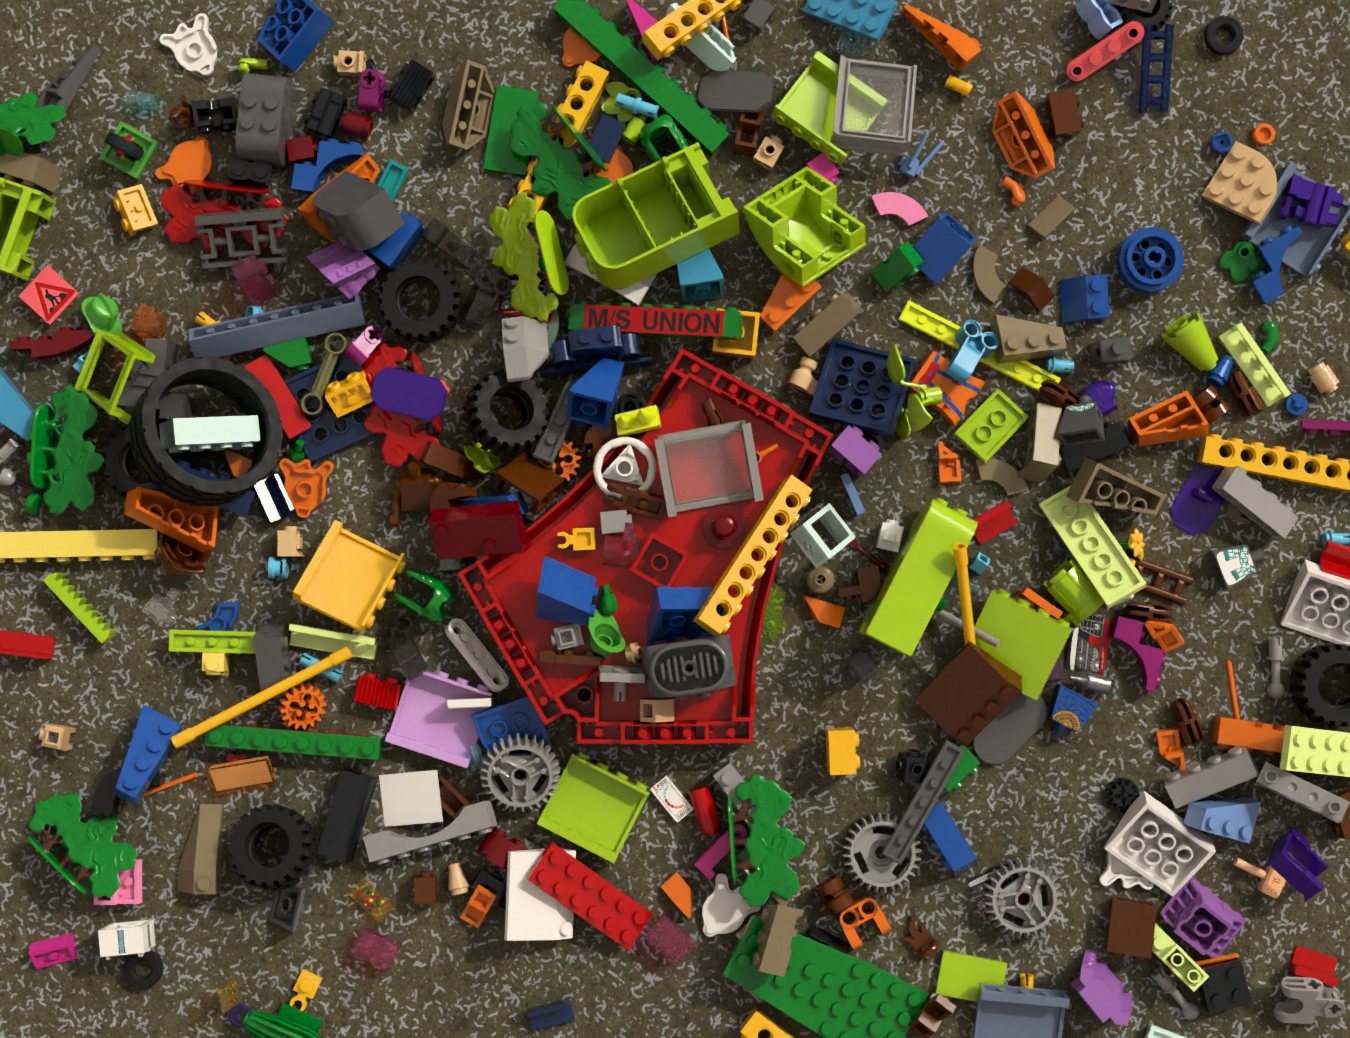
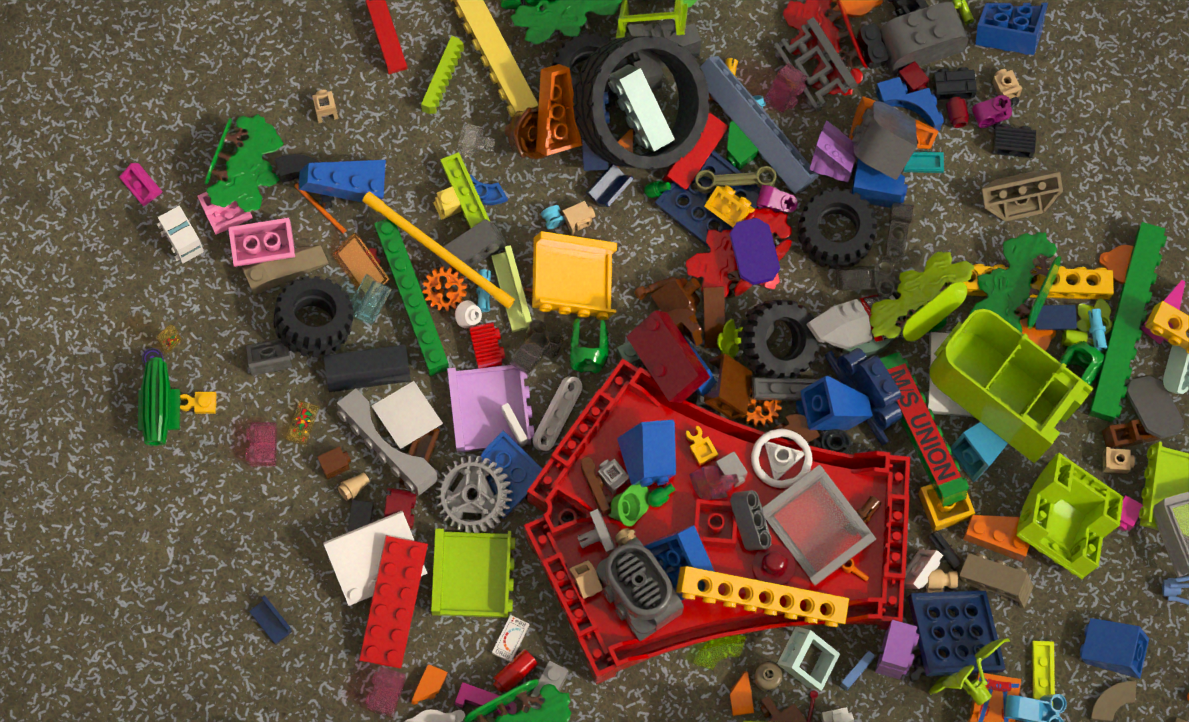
camera: 60 degrees right, 15 degrees down
(143, 982) = (154, 250): black tyre -> none
(149, 322) = (708, 22): clear orange brick -> none
(172, 862) = (261, 242): none -> bright pink slope
(279, 783) = (369, 299): none -> clear light blue panel
(305, 485) = (633, 207): orange tile -> none
(338, 695) = (467, 314): none -> white cone
(476, 760) = (472, 450): clear light blue arm -> none
(478, 906) = (339, 514): orange slope -> none
(498, 153) = (992, 237): green tile -> none
(636, 501) = (759, 476): reddish brown hinge -> none
(638, 421) = (828, 451): neon yellow tile -> none
(674, 529) = (750, 520): none -> dark grey beam
(777, 356) = (945, 549): none -> black axle
(786, 389) = (920, 568): none -> white plate
(897, 266) = (1080, 616): green brick -> none
(899, 205) = (1132, 596): bright pink tile -> none

